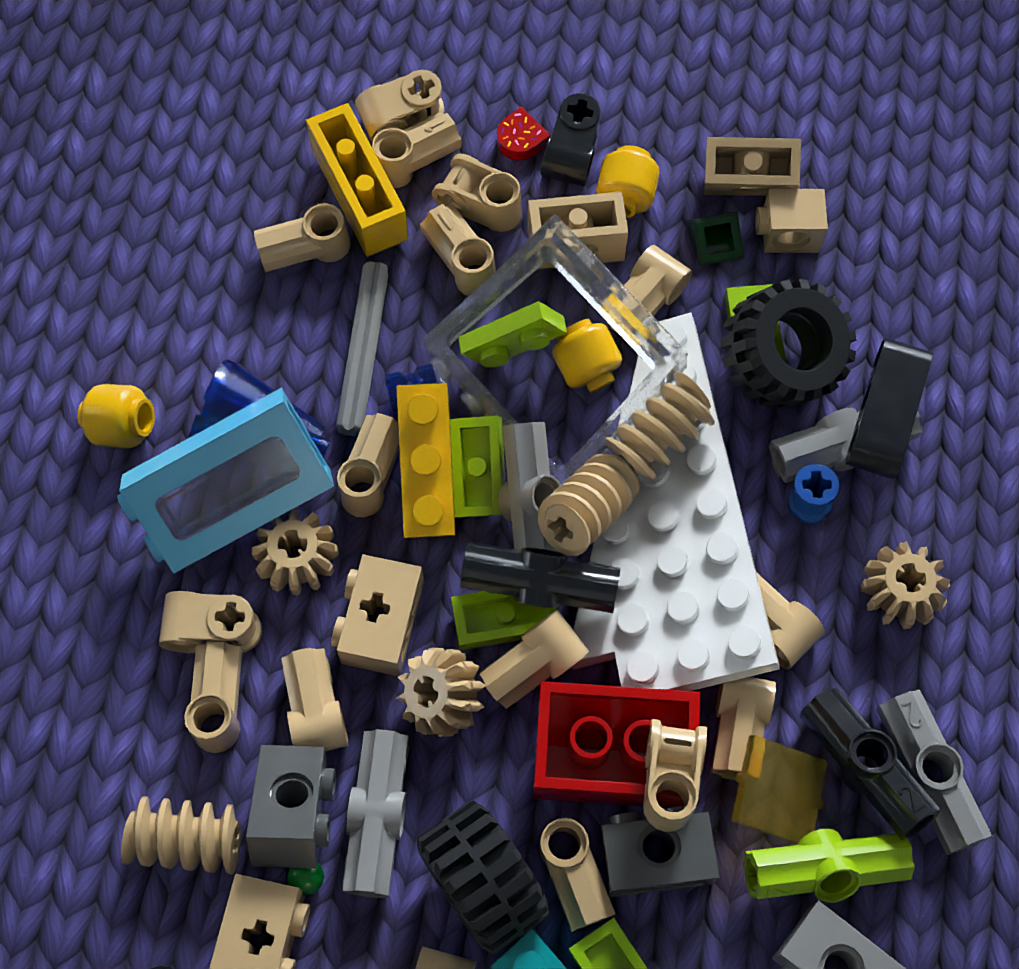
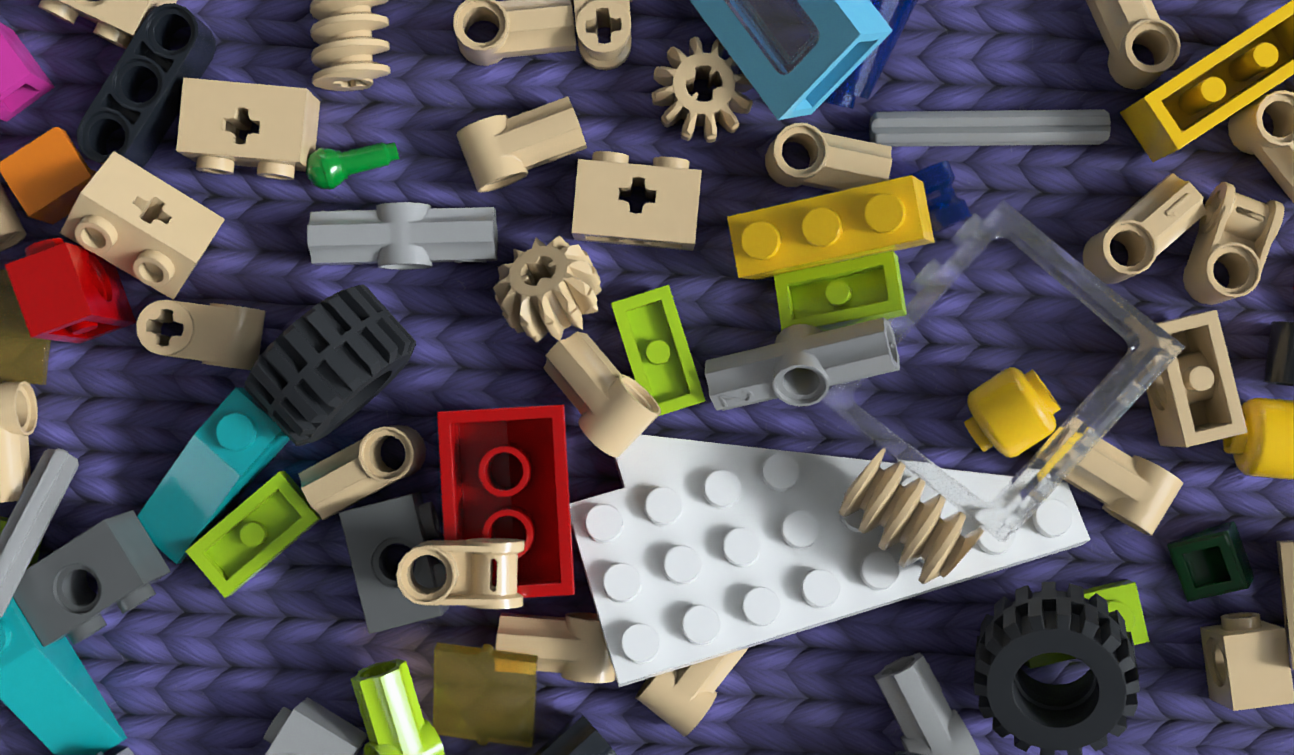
camera: 80 degrees right, 20 degrees up
(290, 835) = (422, 118): dark grey brick -> none
(513, 334) = (1027, 328): lime plate -> none
(540, 577) = (695, 388): black piece -> none
(587, 503) = (796, 435): tan piece -> none
(825, 489) = (875, 722): blue bush -> none

